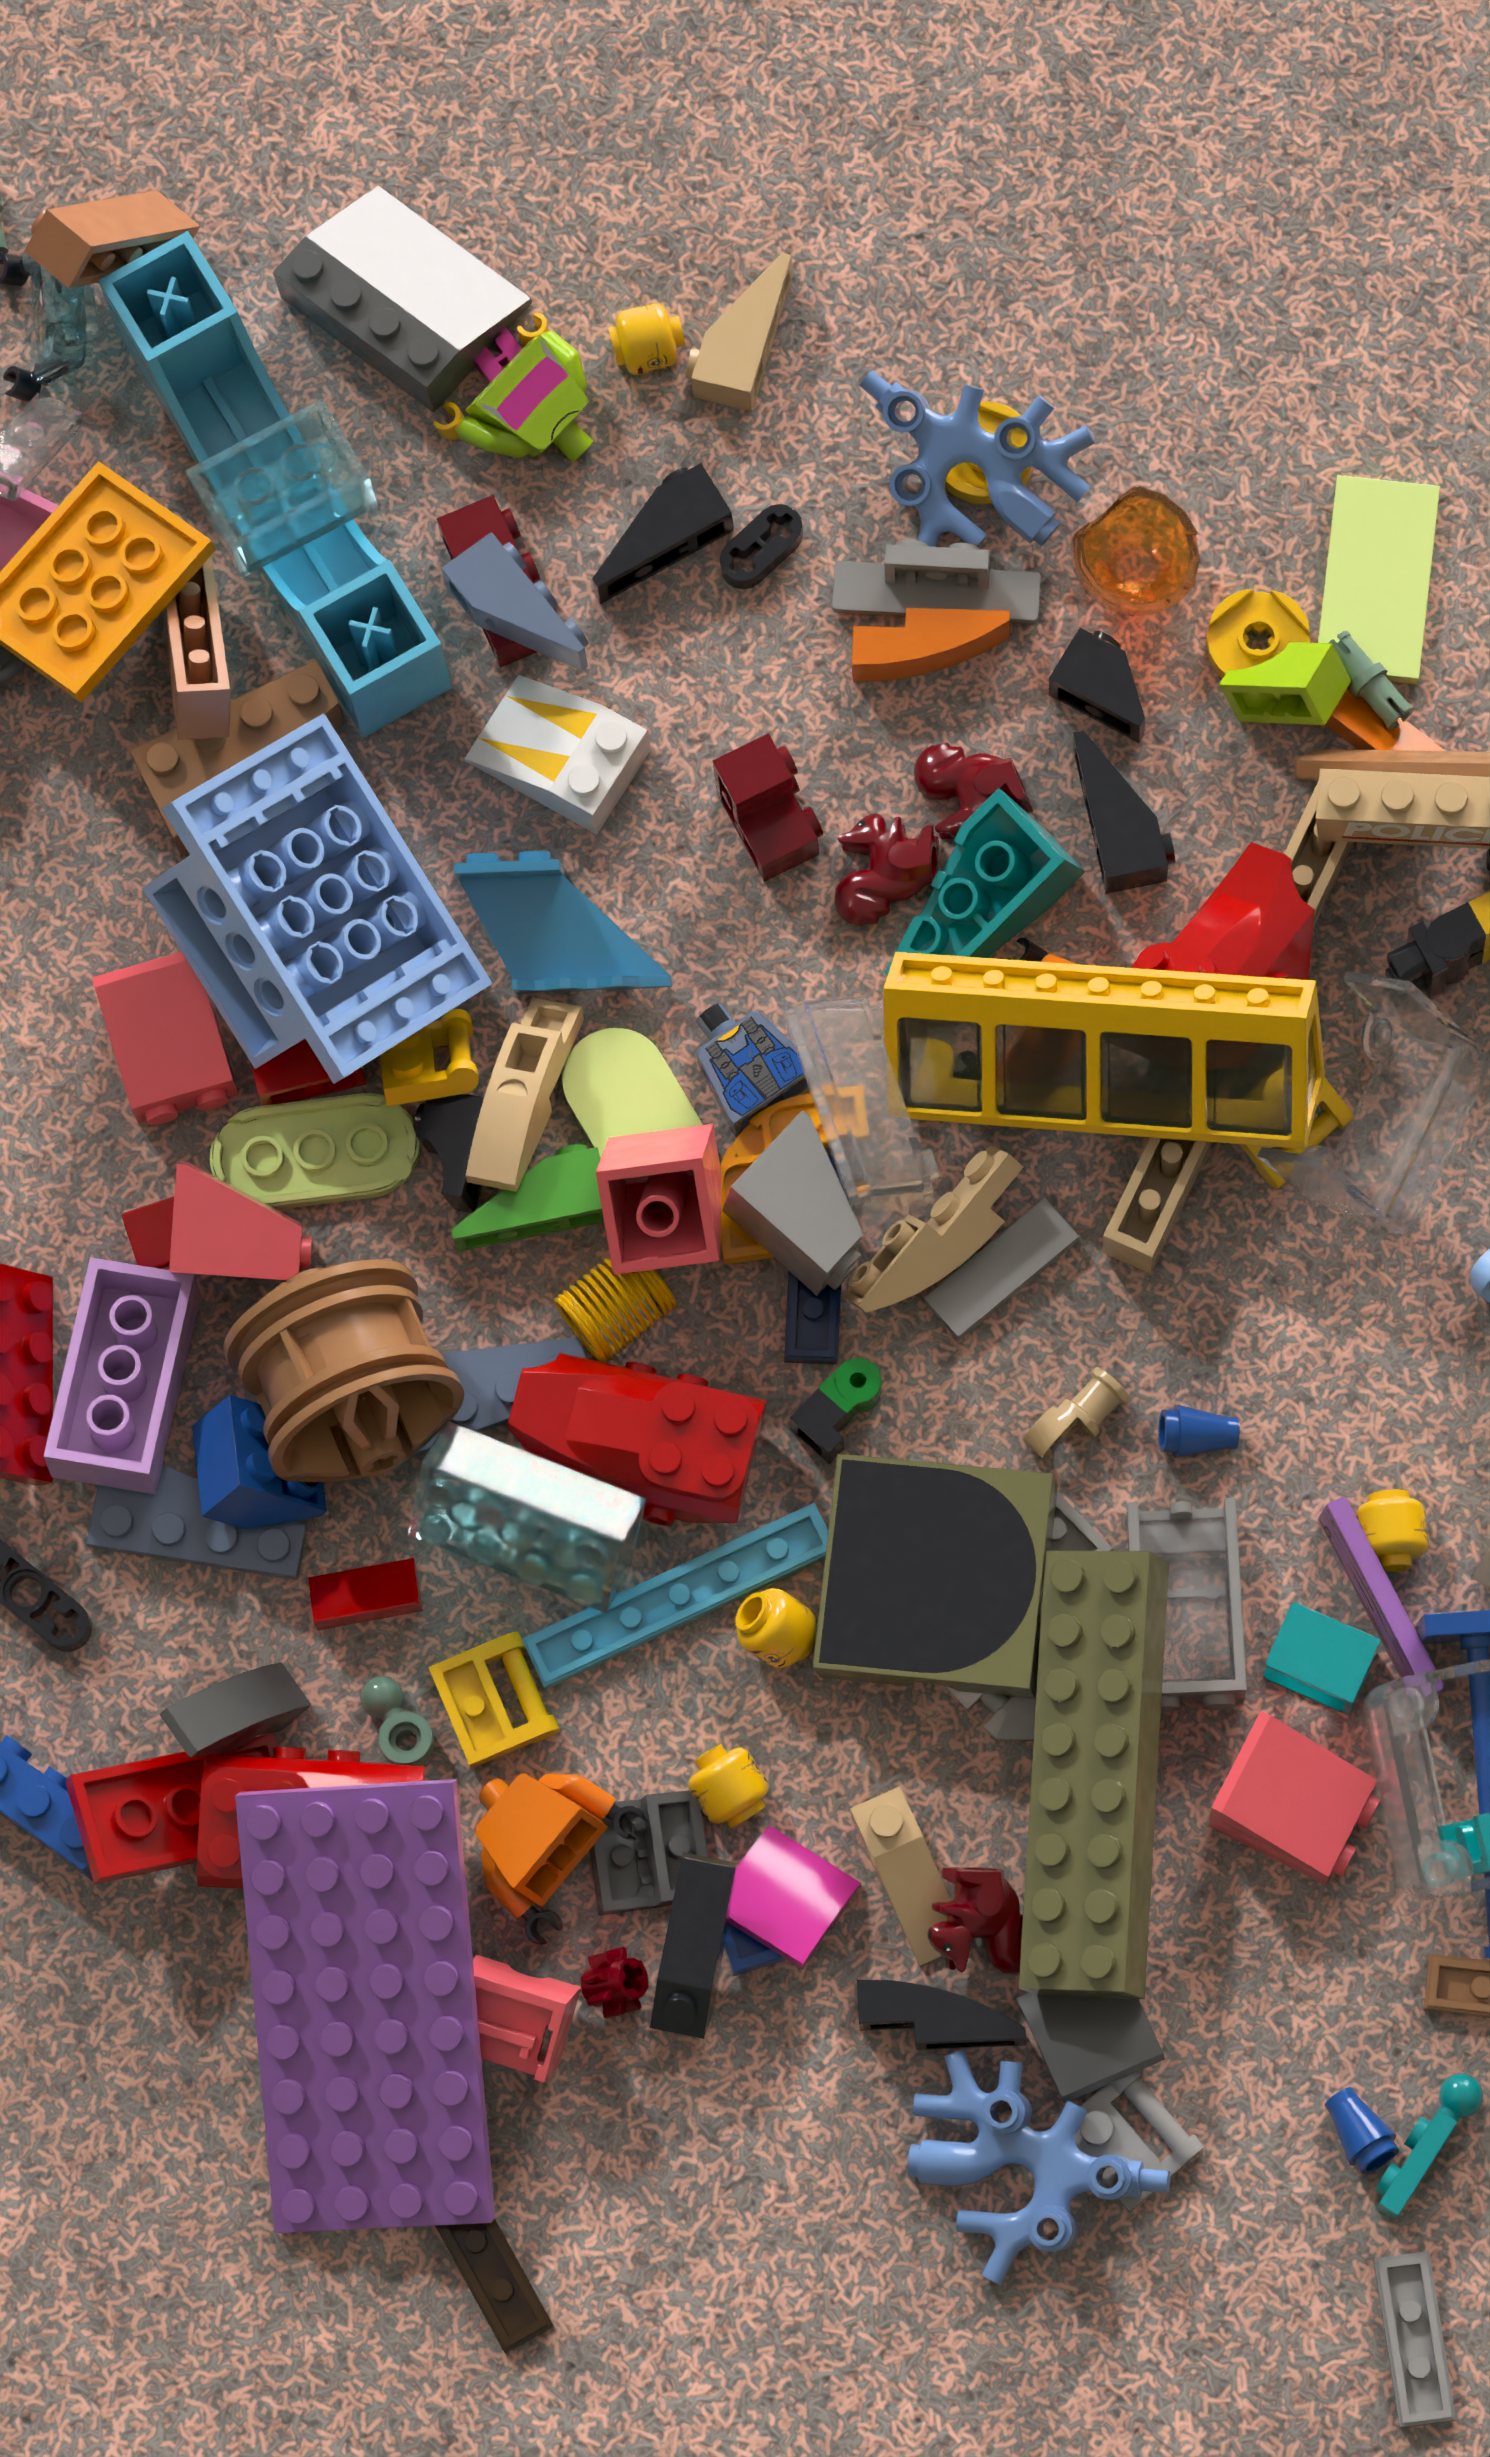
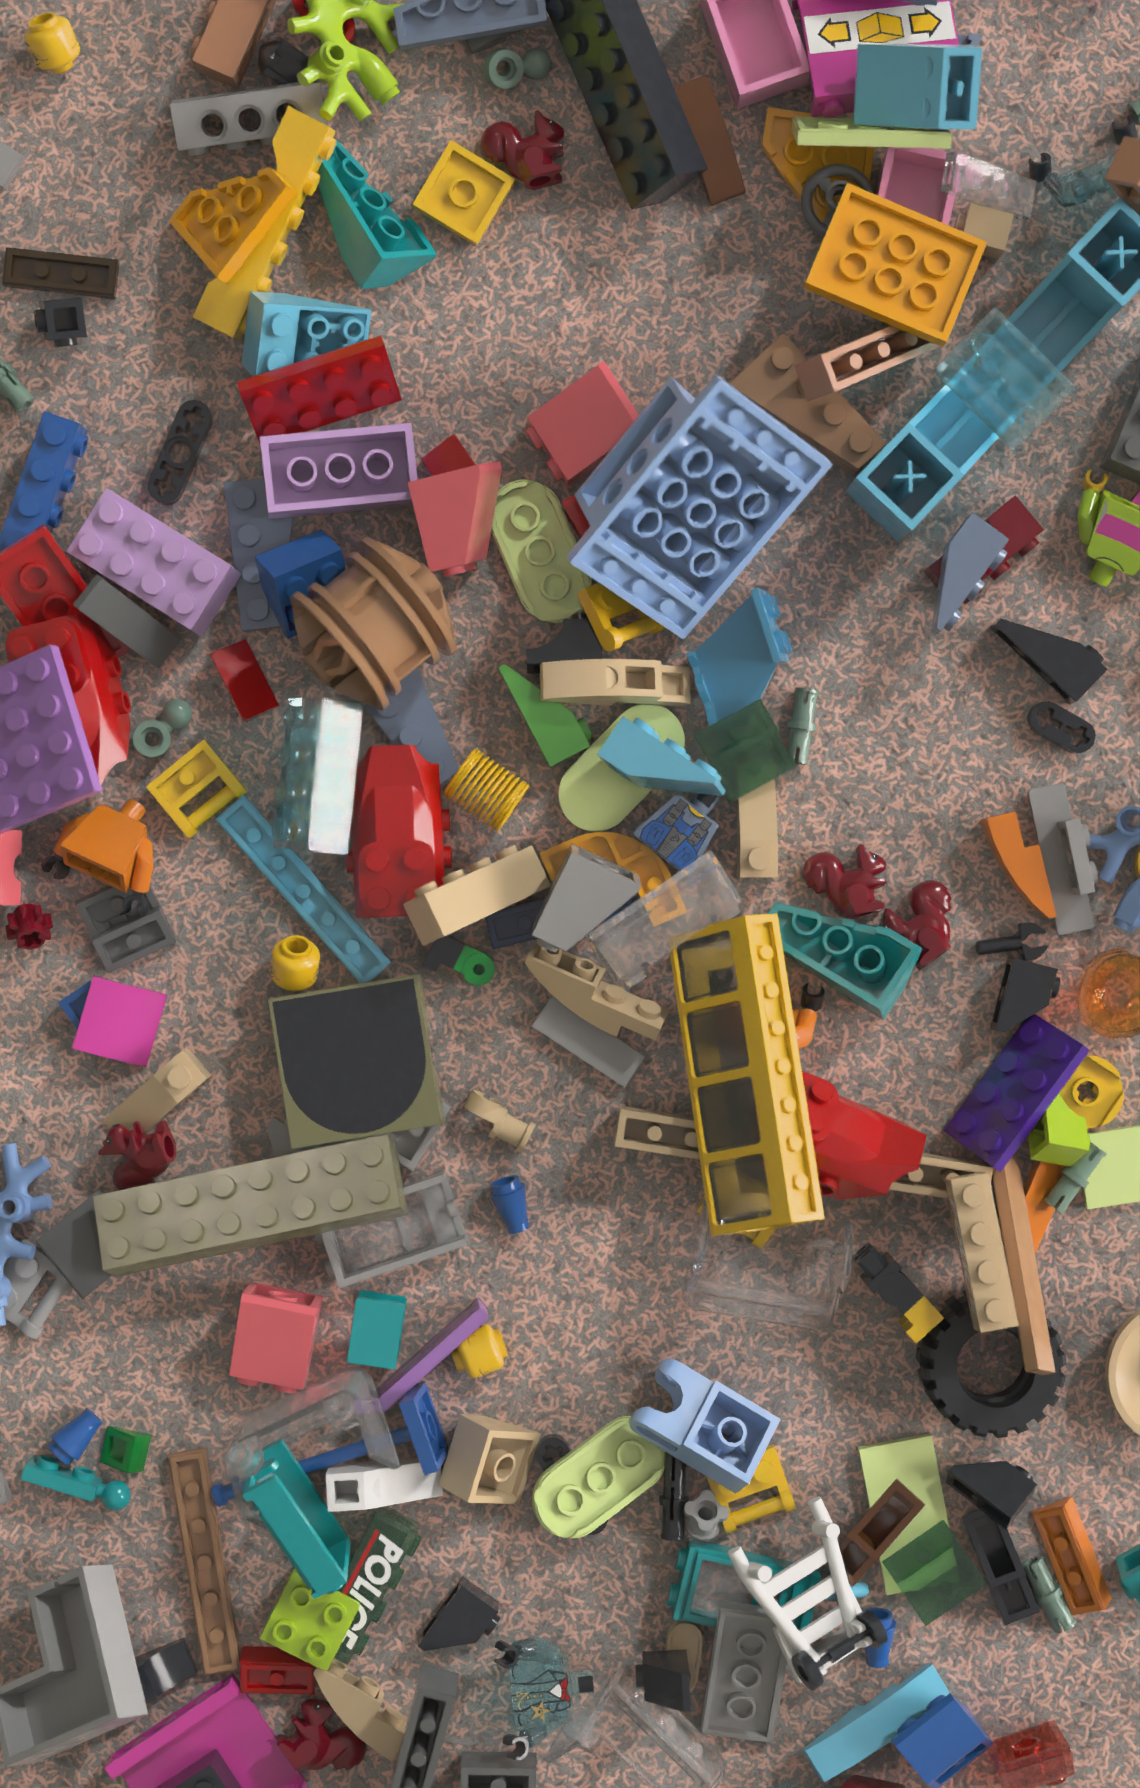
camera: 60 degrees right, 15 degrees up
(73, 461) = (988, 225): none -> tan brick
(171, 1645) = (154, 562): none -> lavender brick
(561, 751) = (872, 631): white slope -> none
(647, 1060) = (648, 763): none -> medium azure slope
(656, 874) = (802, 724): none -> sand green pin
(661, 1198) = (560, 802): coral slope -> none
(667, 949) = (745, 750): none -> clear green slope
(694, 1946) = (59, 974): black slope -> none
(728, 1785) = (181, 962): yellow head -> none
(749, 1342) = (477, 894): none -> tan brick
(759, 797) = (866, 787): dark red brick -> none
(770, 964) = (757, 834): none -> tan slope
(937, 2016) = (69, 1142): black slope -> none
(1031, 680) = (1014, 943): none -> black bar
(1122, 825) = (922, 1036): black slope -> none
(1229, 723) = (1016, 1091): none -> dark purple plate
(1399, 2070) = (125, 1449): none -> green slope

